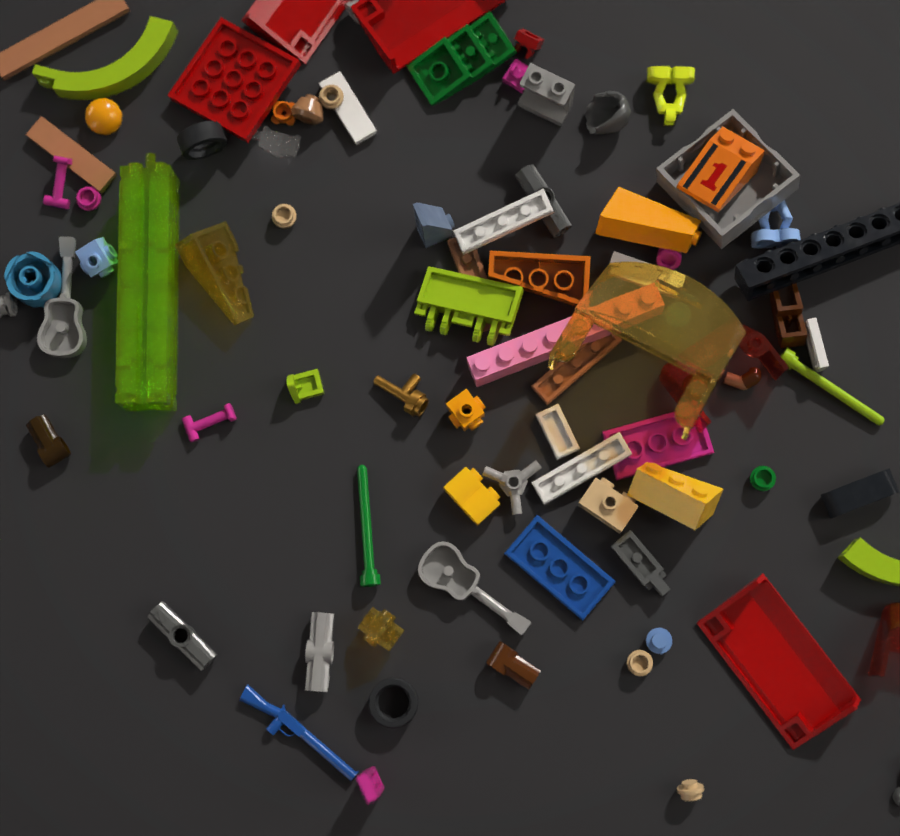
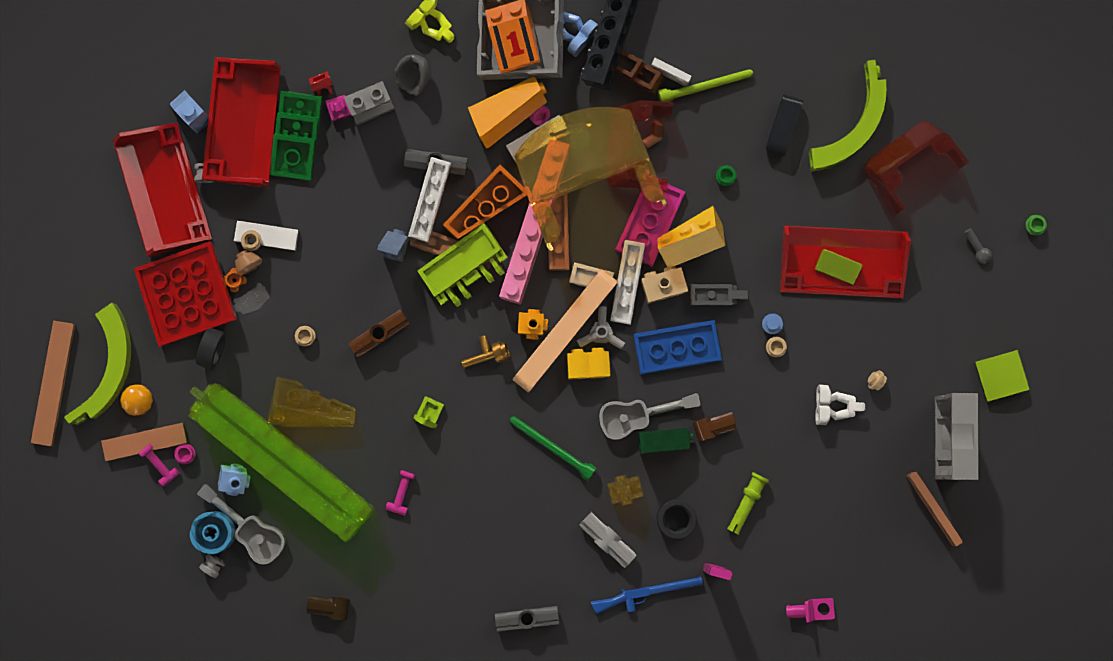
camera: 60 degrees left, 5 degrees up
(325, 275) = (367, 341): none -> reddish brown piece
(459, 627) = (664, 440): none -> dark green slope
(477, 756) = (752, 493): none -> lime pin
(486, 446) = (565, 330): none -> light nougat beam
(616, 763) = (823, 410): none -> white piece
(769, 659) = (838, 266): none -> lime slope

